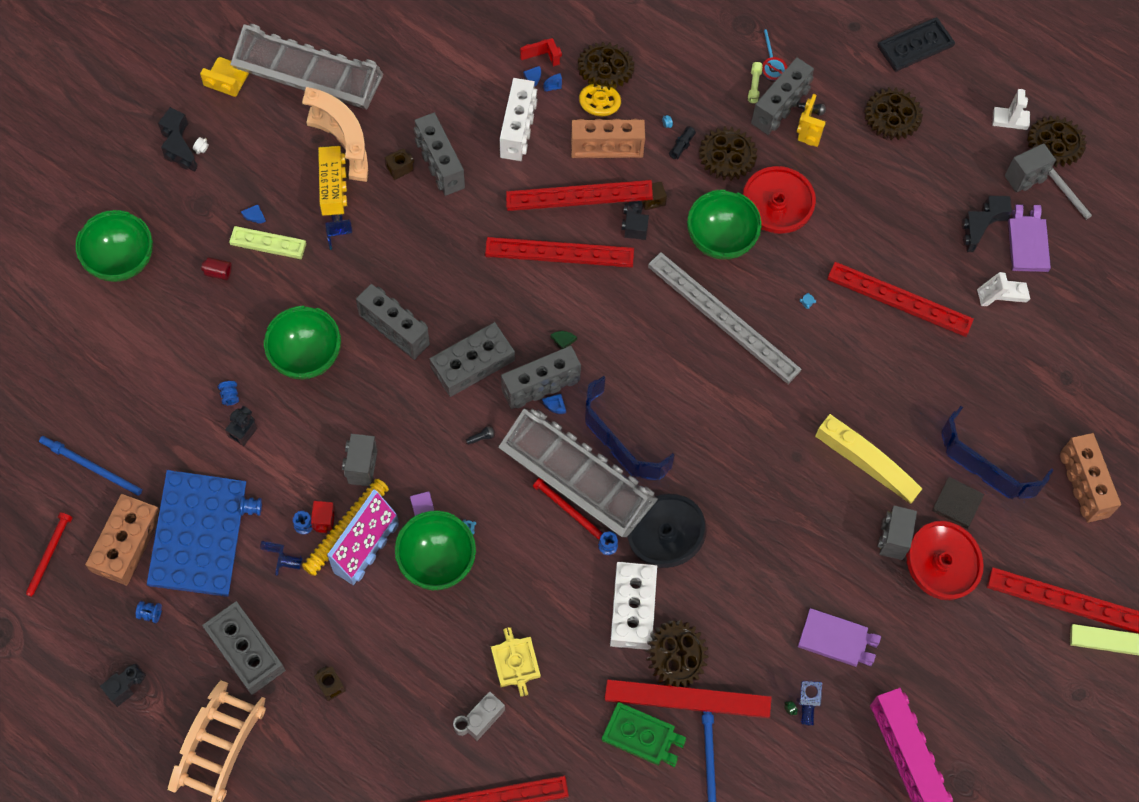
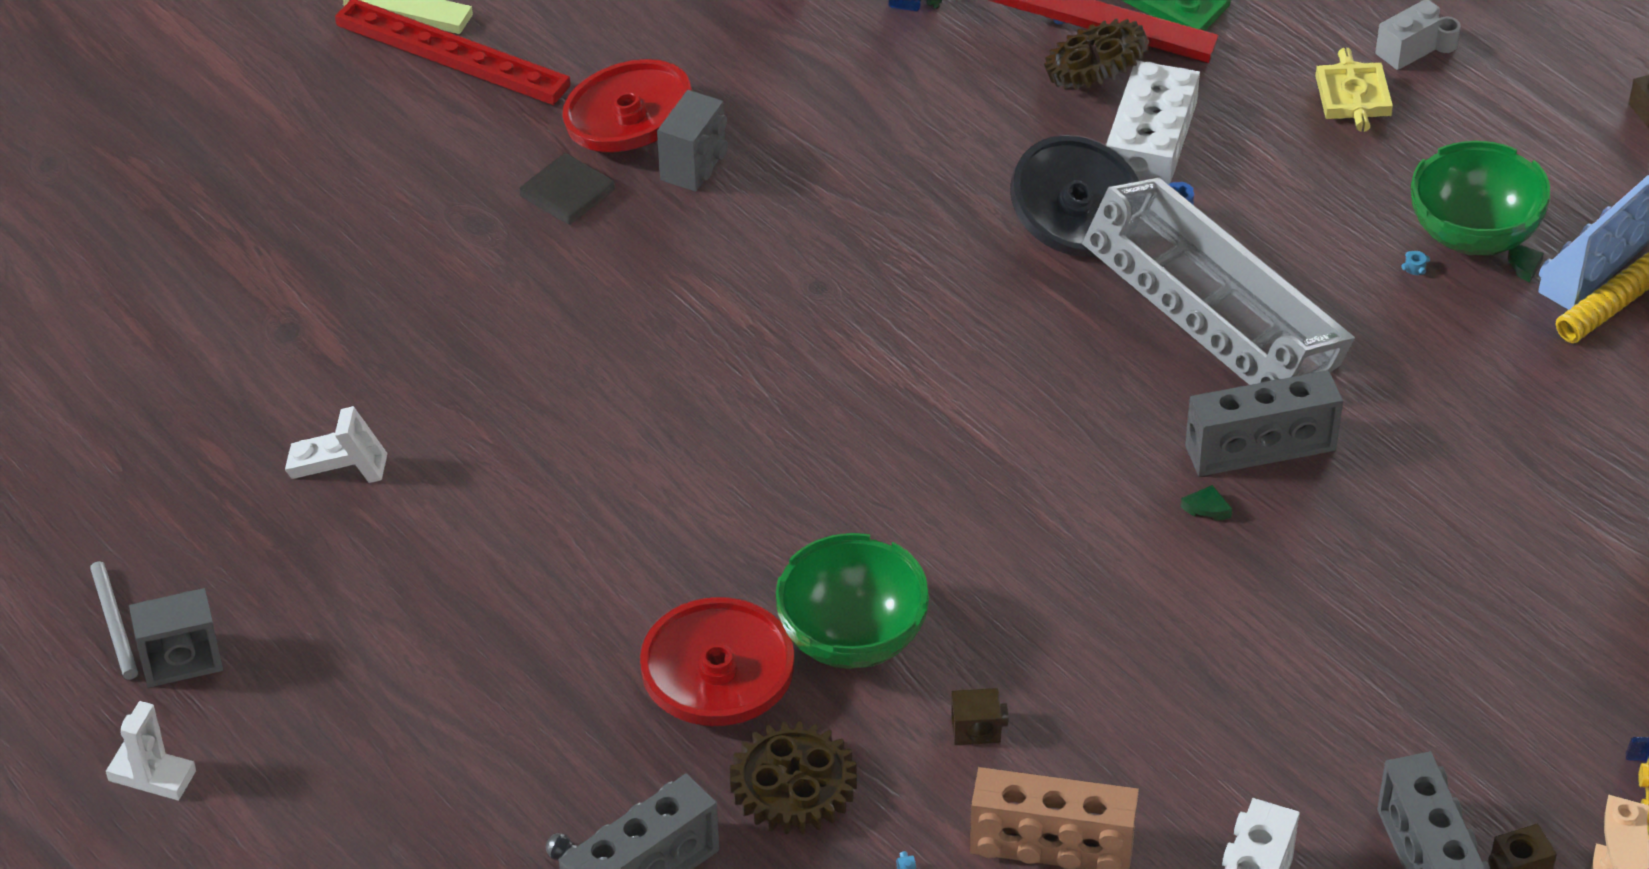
camera: 165 degrees left, 20 degrees down
(360, 459) = (1608, 348): dark grey brick -> none
(393, 321) = (1544, 548): dark grey brick -> none
(421, 503) = (1495, 287): medium lavender brick -> none
(470, 370) = (1389, 482): dark grey brick -> none
(486, 433) = (1370, 380): black piece -> none
(559, 252) = (1193, 644): red plate -> none
(579, 195) = (1136, 721): red plate -> none
(635, 223) = (1023, 672): black brick -> none
(646, 470) = (1109, 278): clear blue windscreen -> none
(682, 142) = (885, 816): black pin -> none
(724, 318) = (893, 496): light grey plate -> none
(807, 300) = (716, 503): dark azure piece -> none
(810, 128) = (603, 787): yellow bracket -> none
(837, 639) = (831, 57): medium lavender tile -> none
(867, 458) = (705, 259): light yellow slope -> none
(893, 113) = (378, 818): dark brown gear -> none
(900, 299) = (541, 476): red plate -> none
(975, 223) = (323, 575): black arch -> none
(985, 469) = (465, 169): clear blue windscreen -> none
(1028, 241) = (241, 540): medium lavender tile -> none
(1060, 138) = (50, 713): dark brown gear -> none
(1096, 490) = (338, 166): nougat brick -> none

